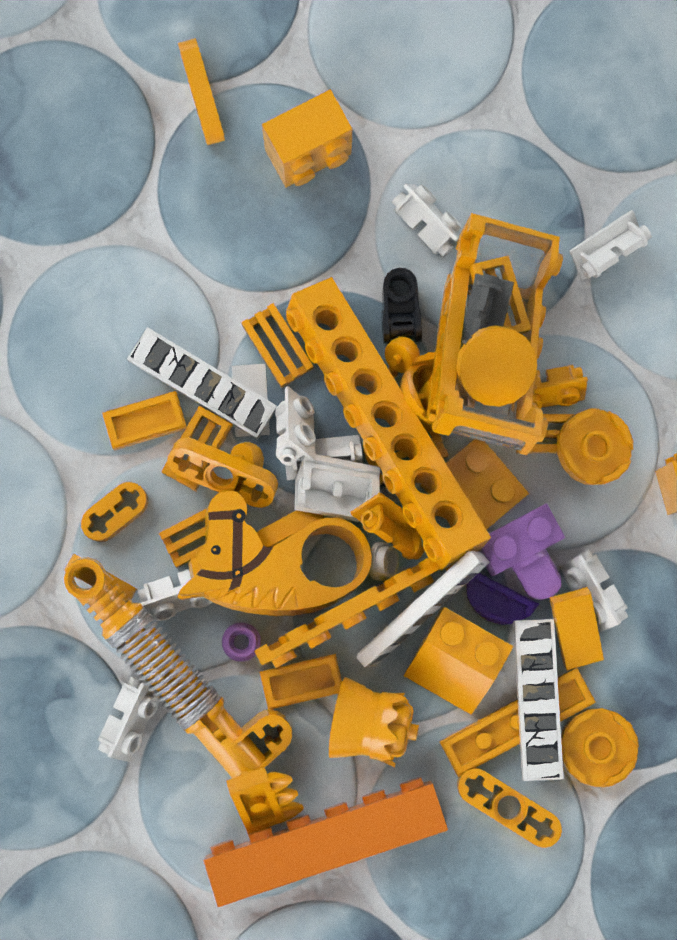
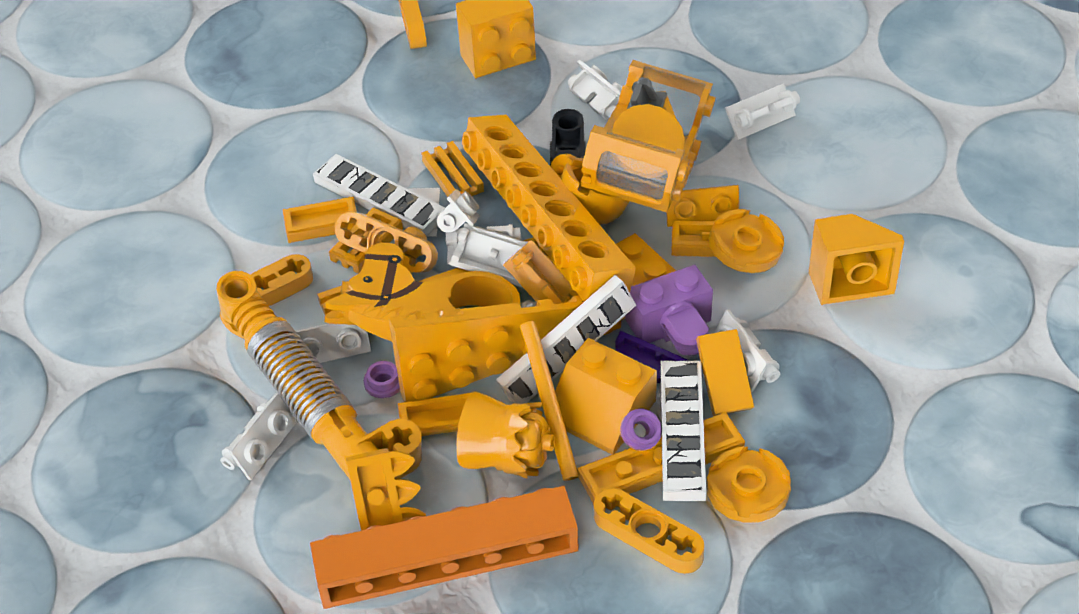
camera: 10 degrees right, 35 degrees down
(410, 680) = (549, 400): none -> light orange piece
(506, 711) = (648, 421): none -> medium lavender plate

